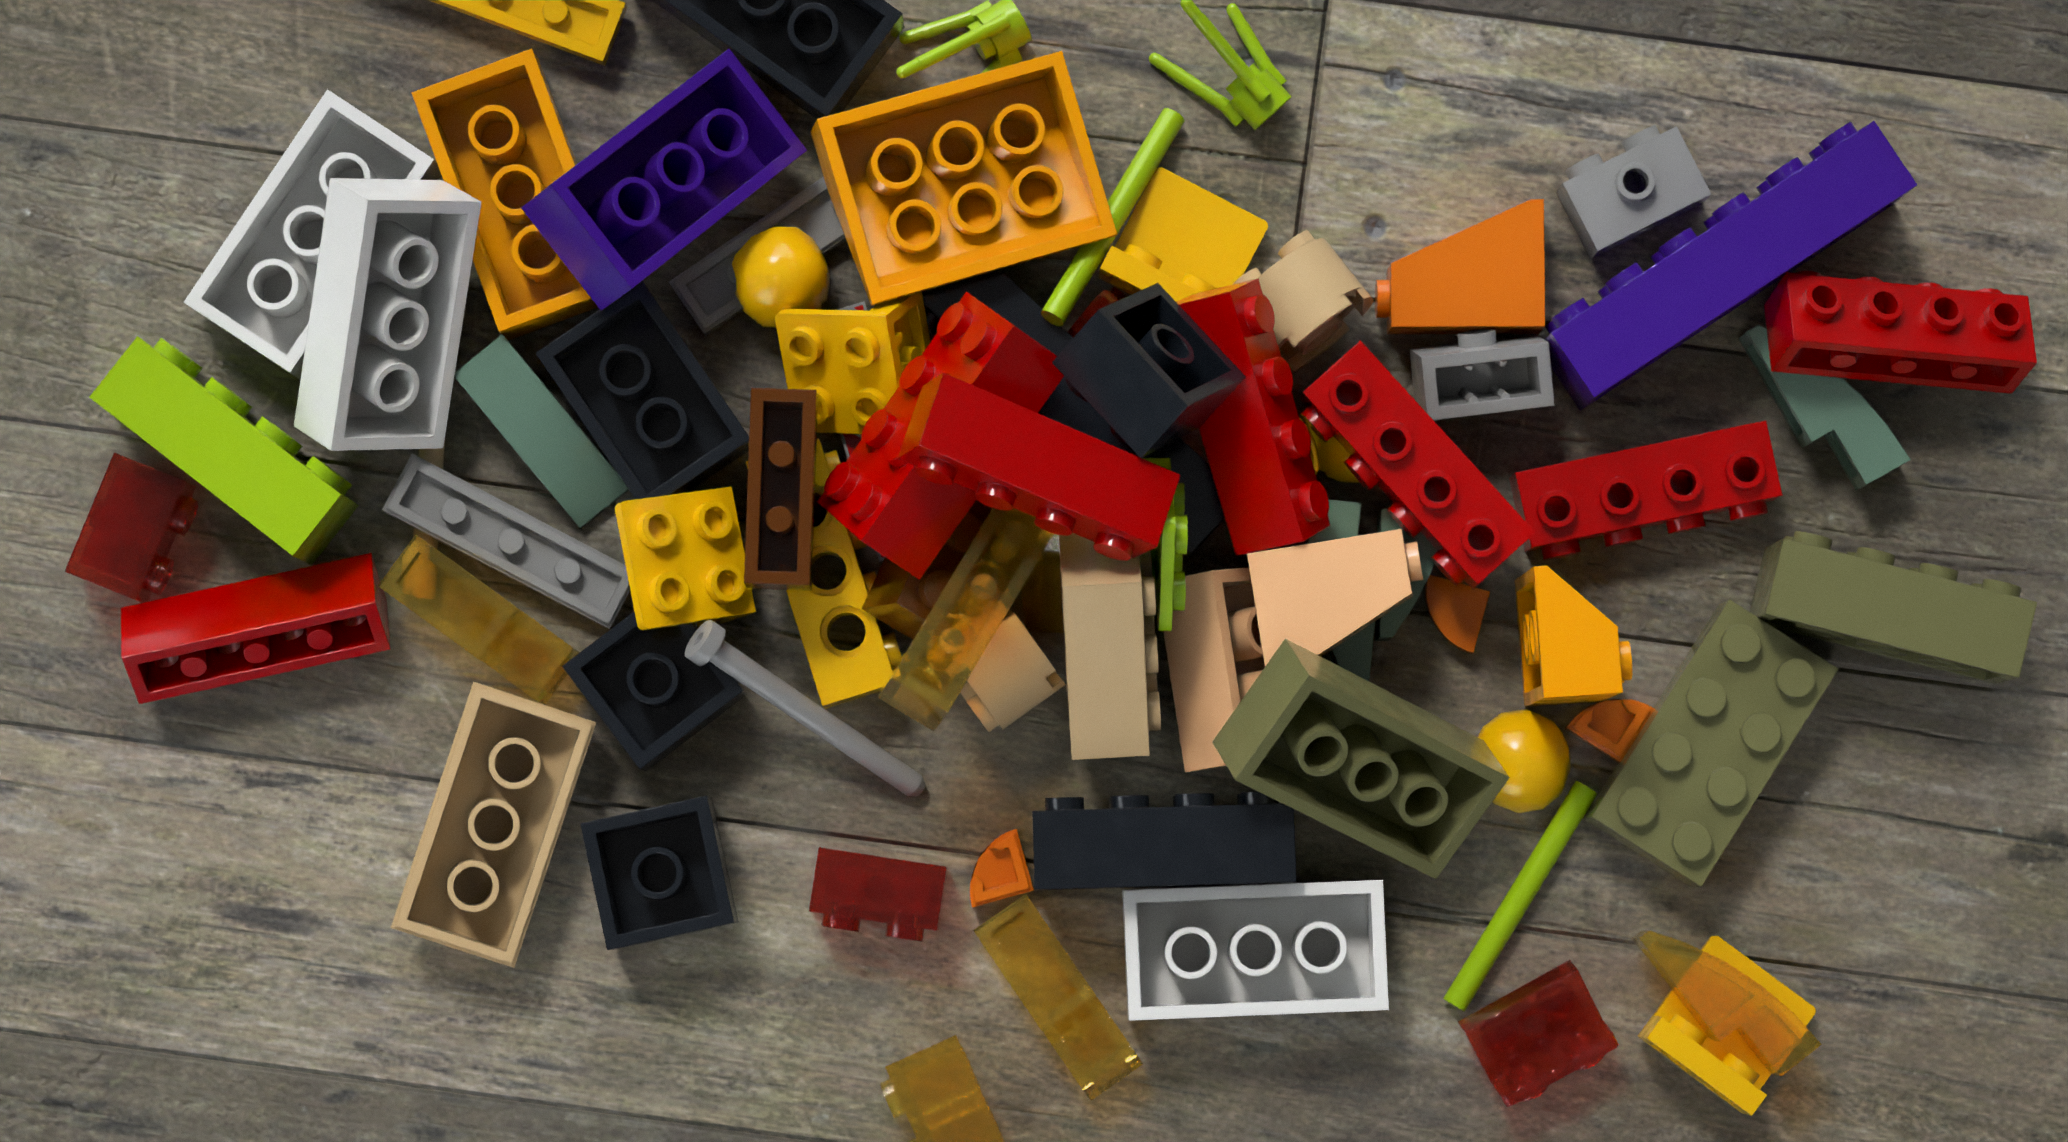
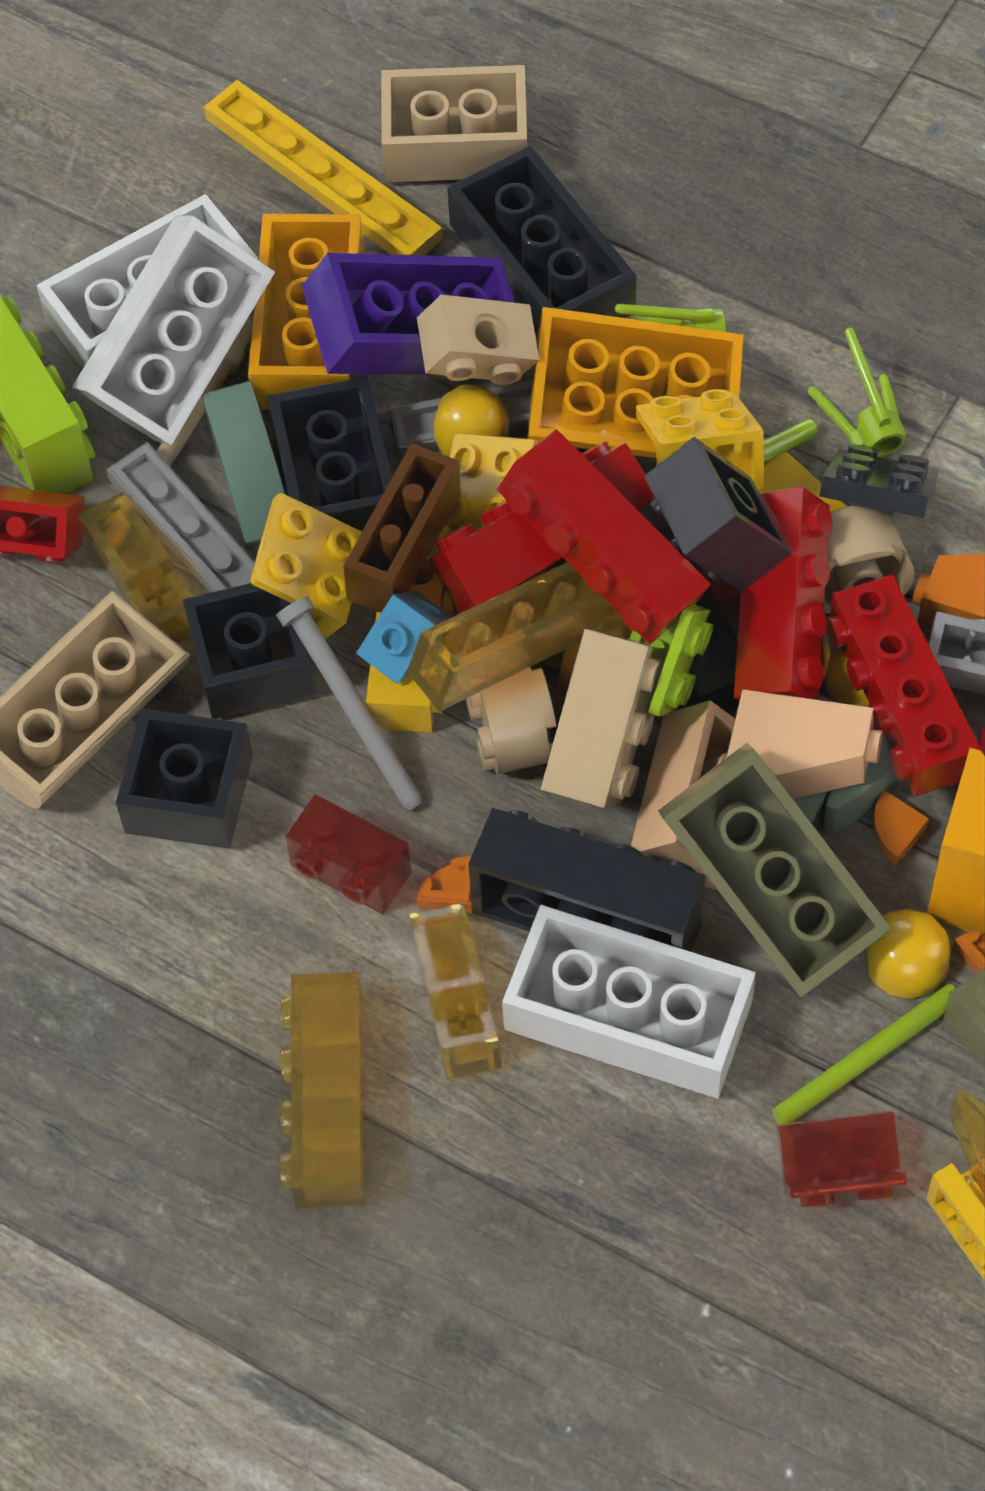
camera: 25 degrees right, 25 degrees down
(731, 212) = (477, 339): none -> tan brick
(836, 611) = (397, 631): none -> dark azure bracket
(1077, 238) = (715, 419): none -> yellow bracket
(1293, 195) = (879, 482): none -> black plate

